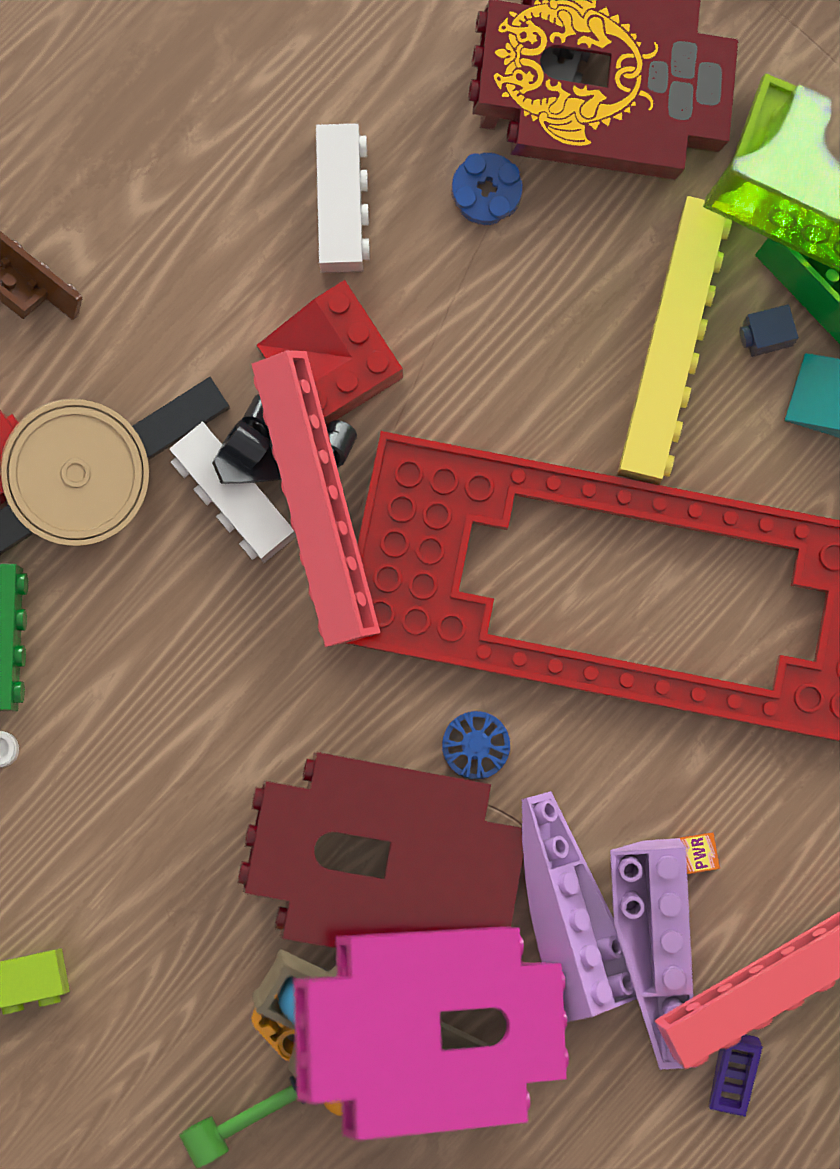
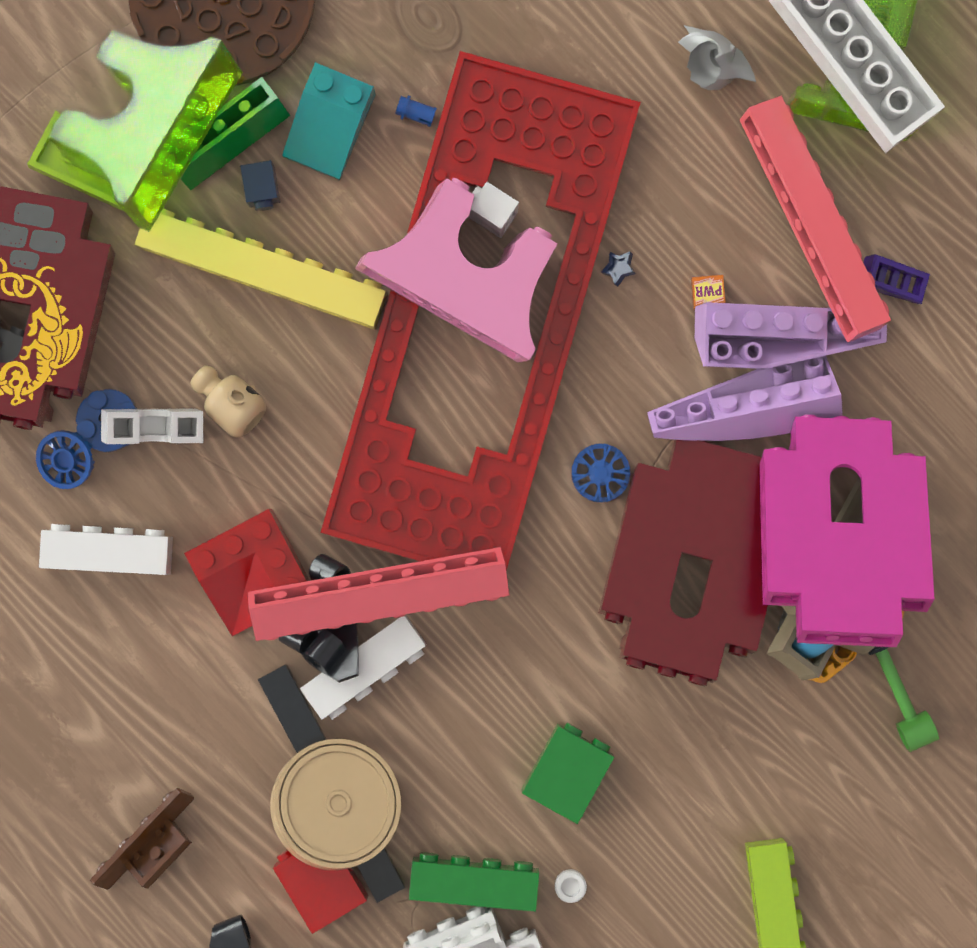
camera: 90 degrees left, 5 degrees up
(128, 734) = (568, 772): none -> green brick
(439, 144) = (64, 459): none -> blue wheel
(485, 232) = (146, 425): none -> white arch
(520, 317) = (229, 401): none -> tan piece
(662, 583) = (437, 277): none -> bright pink piece
(716, 746) = (619, 267): none -> piece
(769, 592) = (493, 209): none -> white brick

